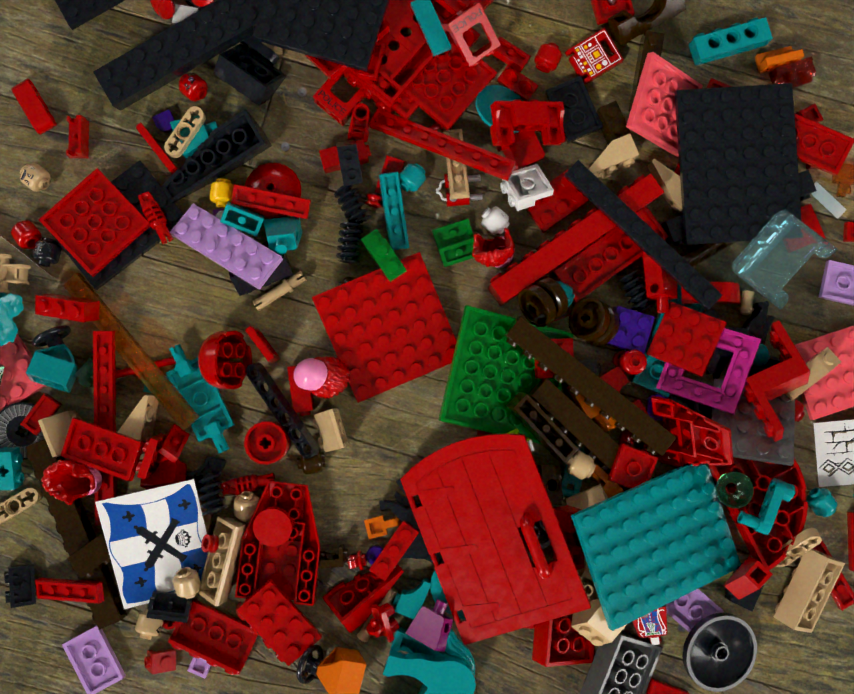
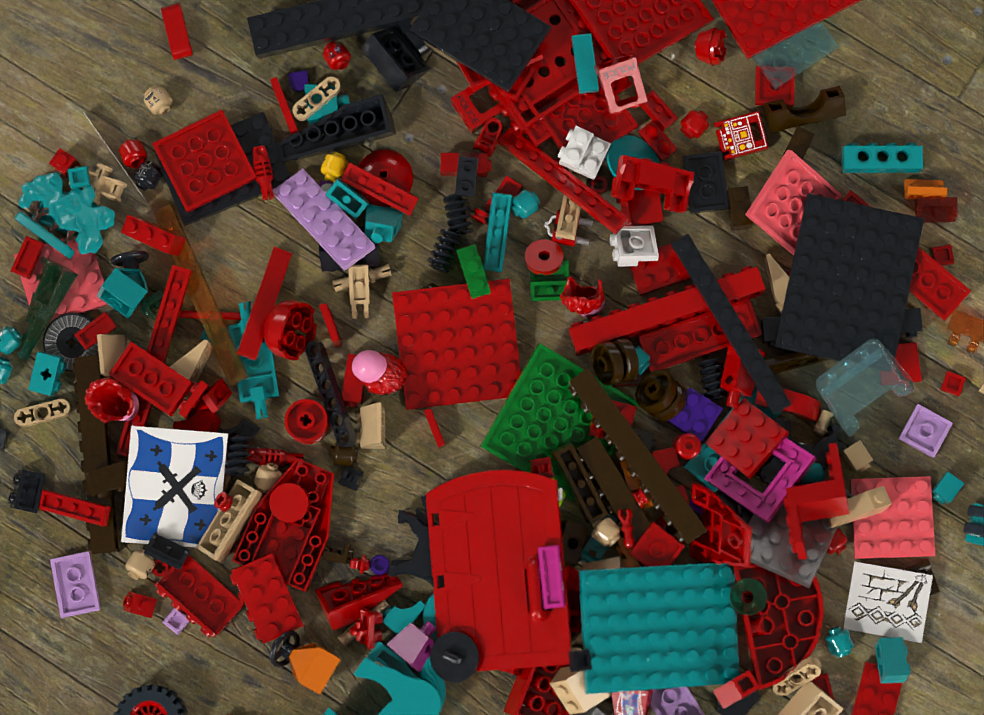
camera: 30 degrees right, 5 degrees down
(78, 137) = (209, 73): red hinge -> none
(186, 583) = (189, 533): tan head -> none
(193, 339) = (264, 302): none -> red tile
(279, 301) = (359, 288): none -> tan hinge
(325, 482) = (351, 478): none -> black tile
(378, 526) = (391, 536): orange plate -> none
(389, 413) = (434, 428): none -> red tile
(394, 550) = (399, 561): red plate -> none
(441, 213) = (544, 247): none -> red tile
(454, 111) = (583, 152): none -> white plate
(474, 628) = (454, 657): none -> black shield
(476, 134) = (604, 185): none -> red bush
(495, 220) = (594, 269): white head -> none
(502, 423) = (541, 466): none -> red tile
(548, 531) = (551, 577): none -> dark pink plate
(597, 602) = (580, 660): none -> black tile
(600, 457) = (629, 541): none -> red piece
(603, 424) = (640, 497): none -> red bush
(616, 156) = (730, 240): tan slope -> none
(776, 492) = (793, 611): teal beam -> none
(791, 323) = (857, 457): none -> tan brick
(828, 201) = (936, 344): white sticker -> none

